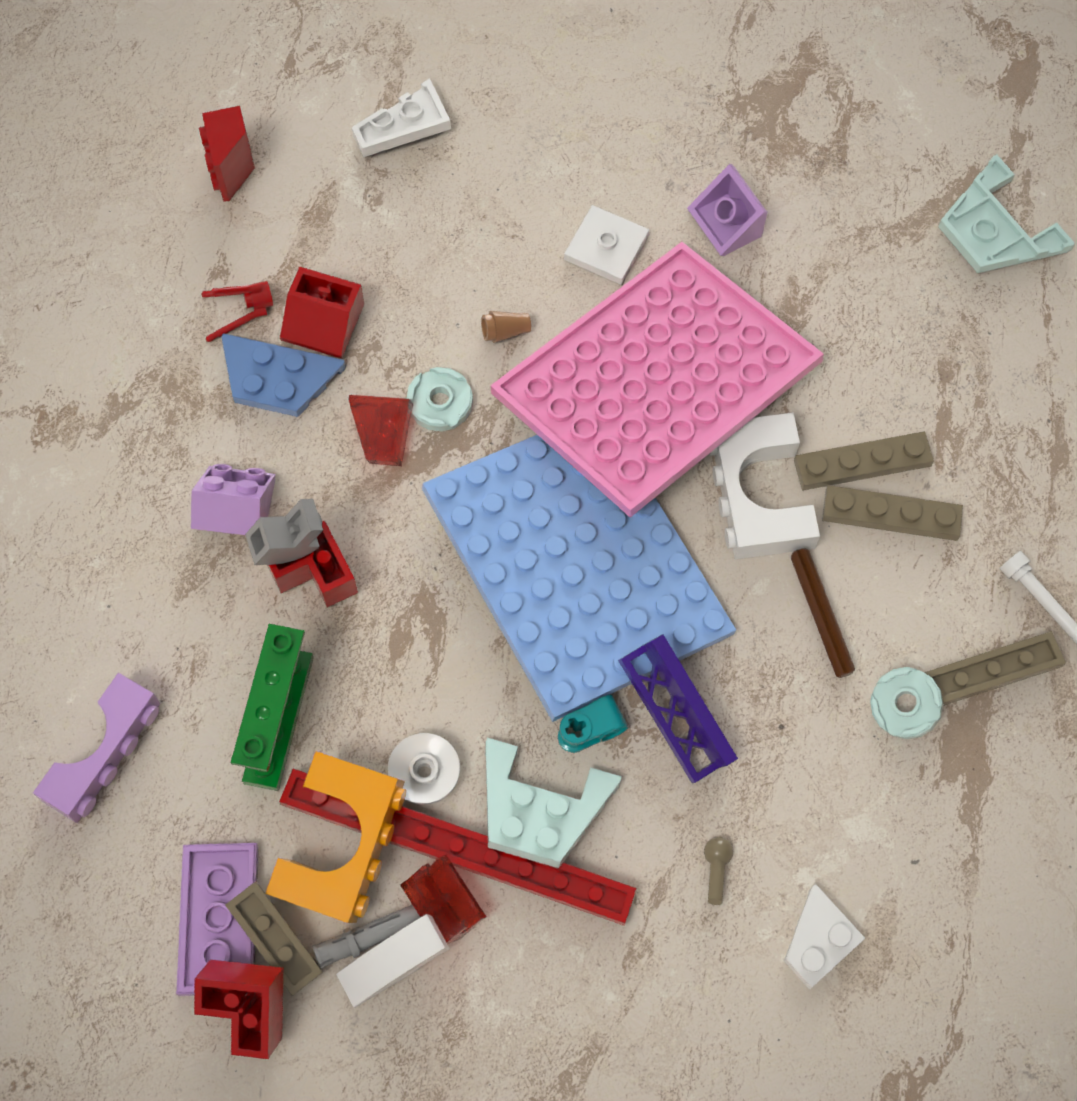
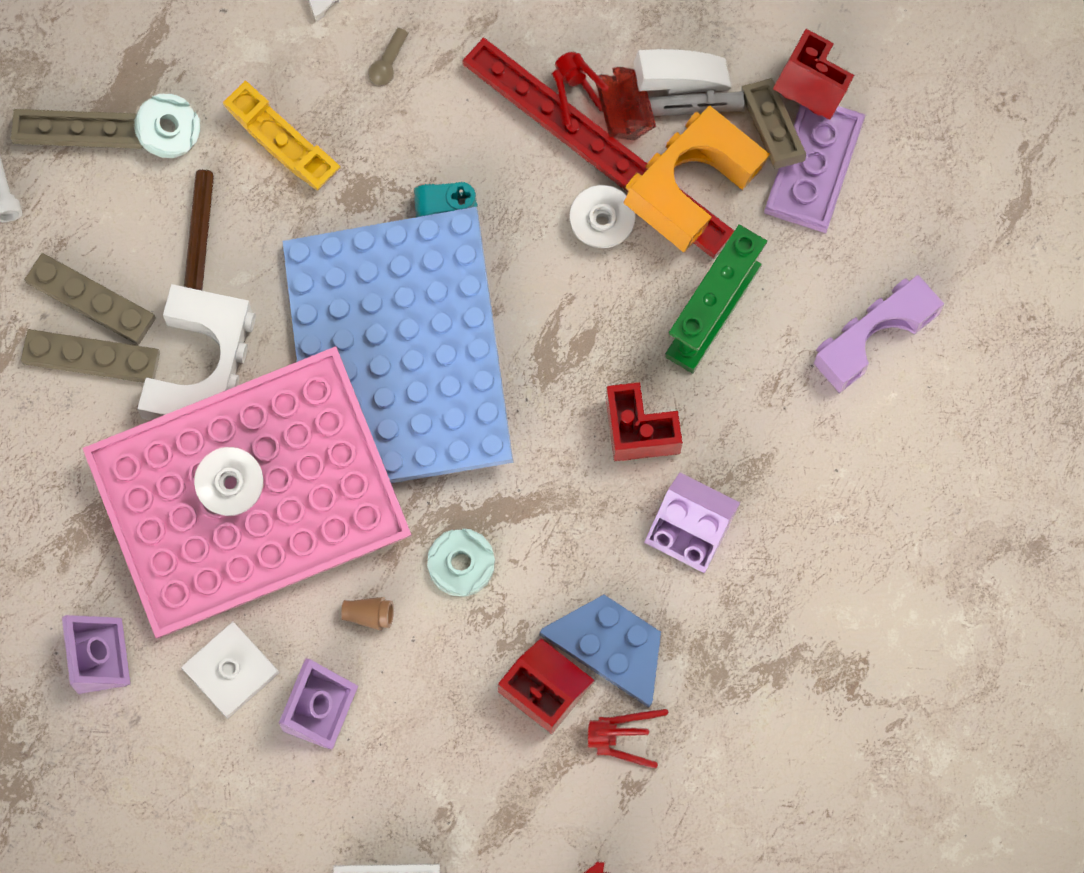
camera: 160 degrees left, 5 degrees up
(285, 537) = (656, 433): light grey brick -> none
(382, 427) = (528, 549): clear red wing -> none
(513, 919) = (572, 70): none -> red plant
(517, 236) = (317, 705): none -> lavender slope
(535, 820) = (526, 141): light aqua wing -> none
(674, 350) = (211, 478): none -> white dish
(689, 703) = (356, 183): dark purple fence -> none
(787, 736) = (279, 137): none -> yellow slope

